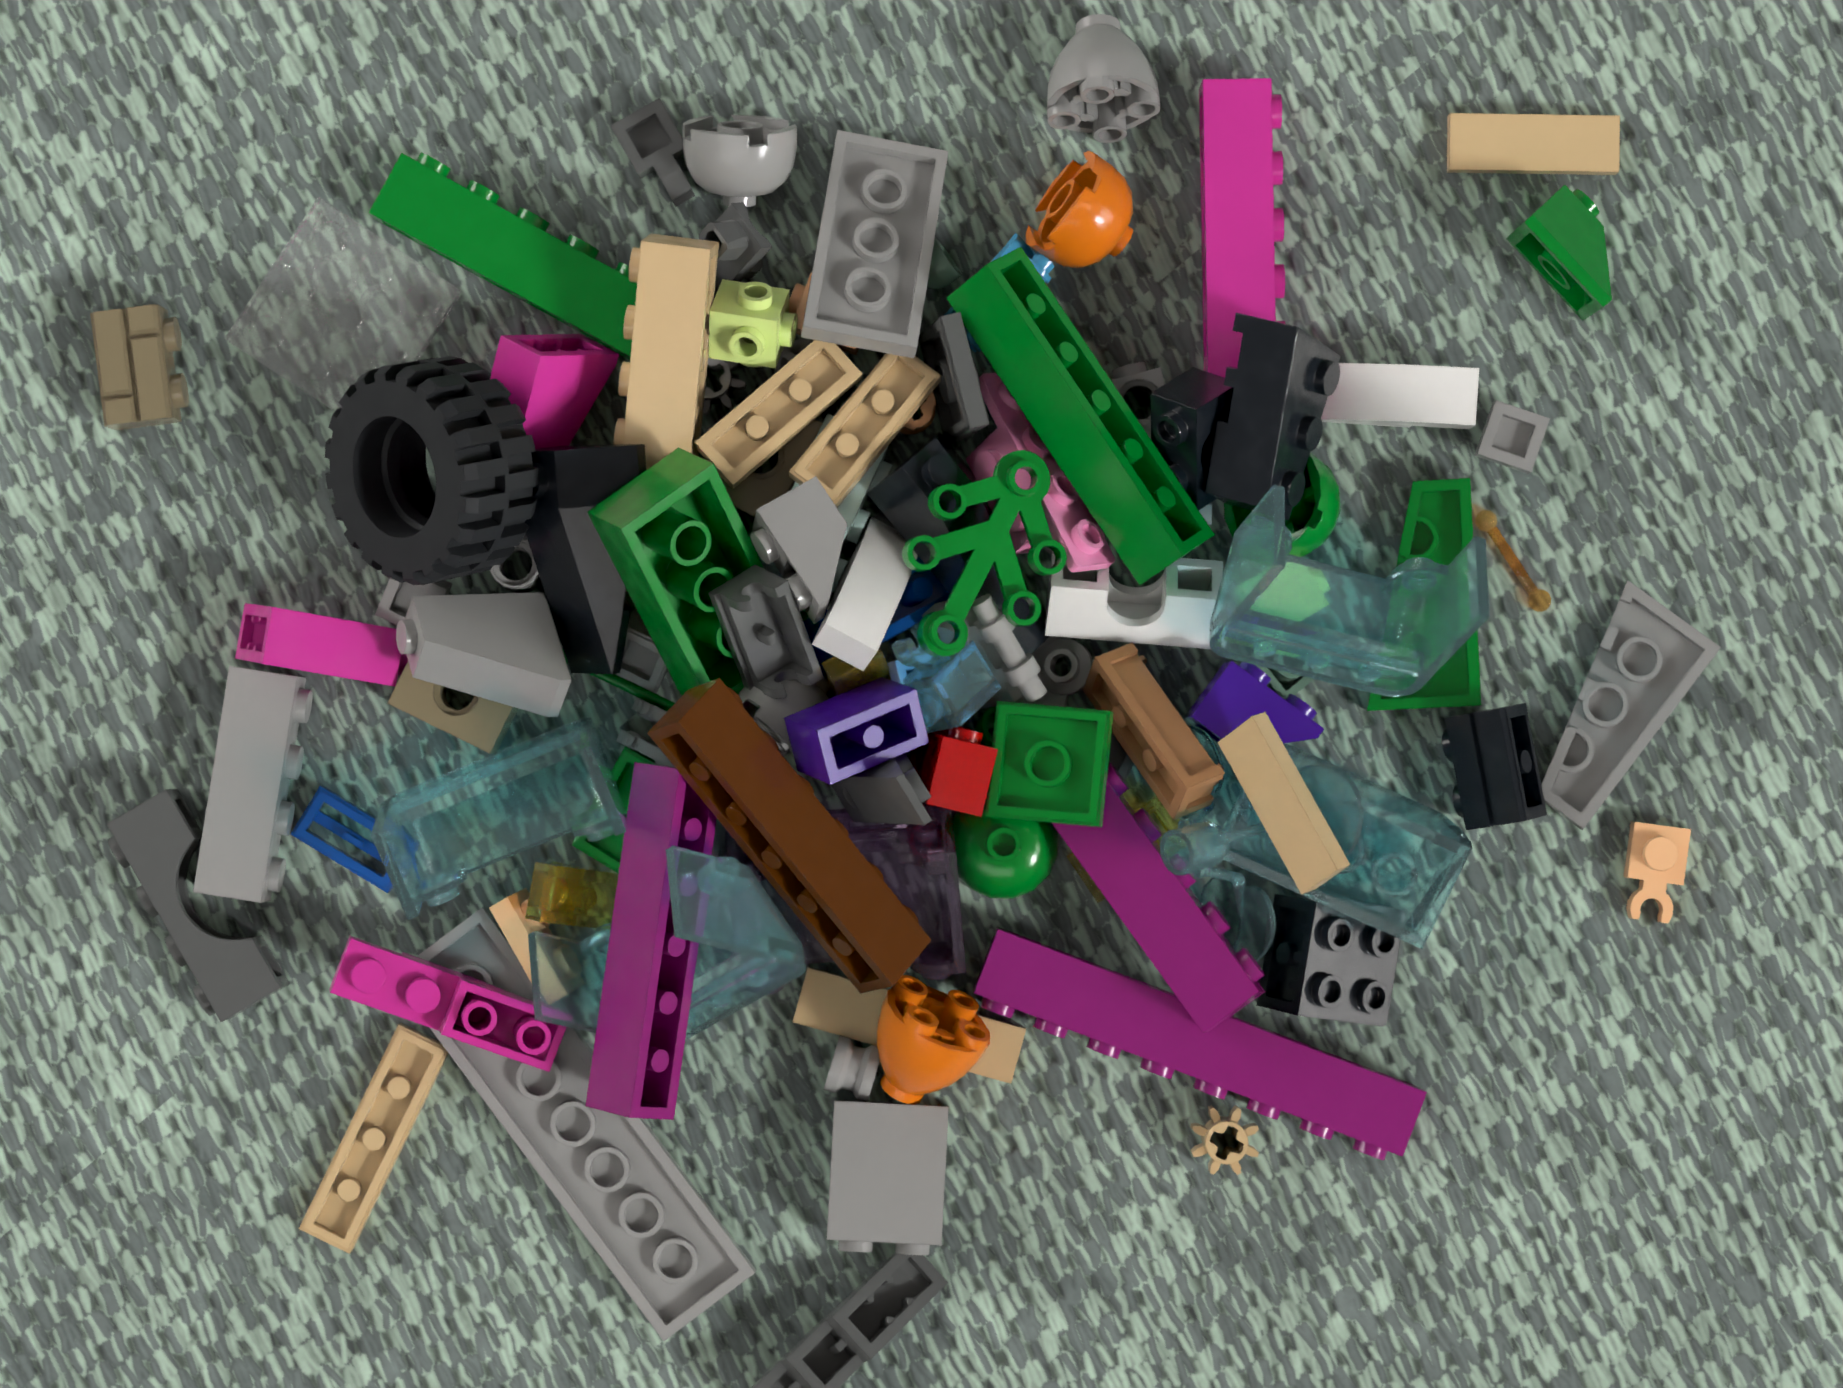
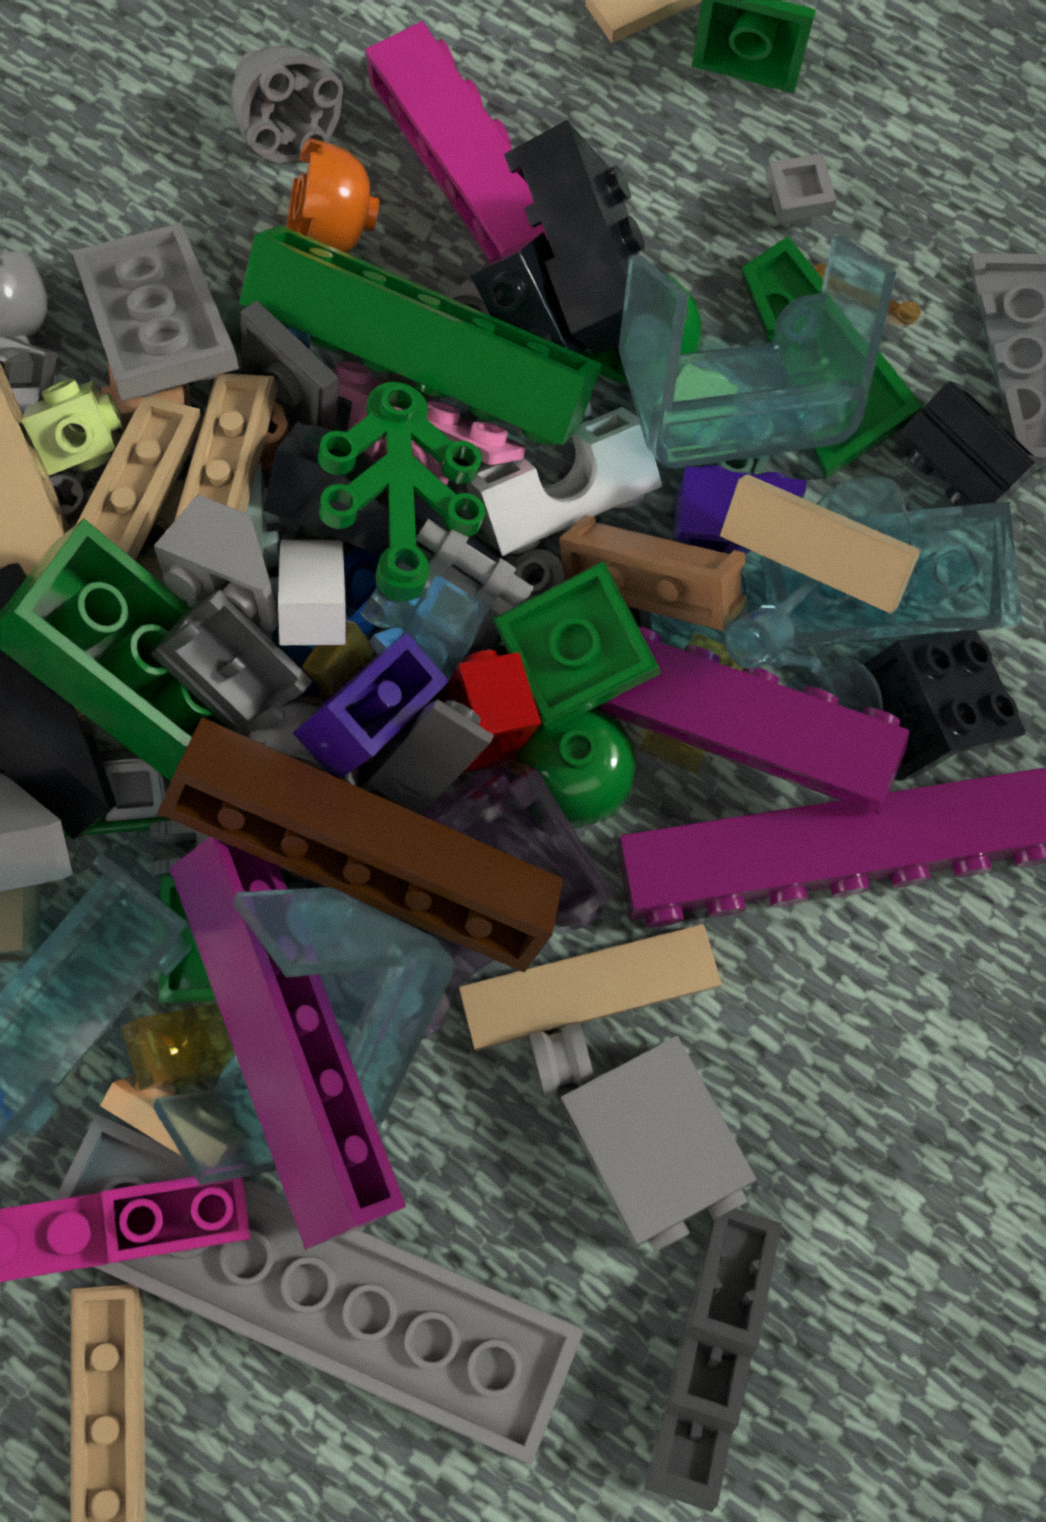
camera: 30 degrees left, 15 degrees down
(927, 1039) = (616, 983): orange piece -> none
(1229, 1155) = (961, 902): tan gear -> none
(1404, 396) = (695, 199): white slope -> none

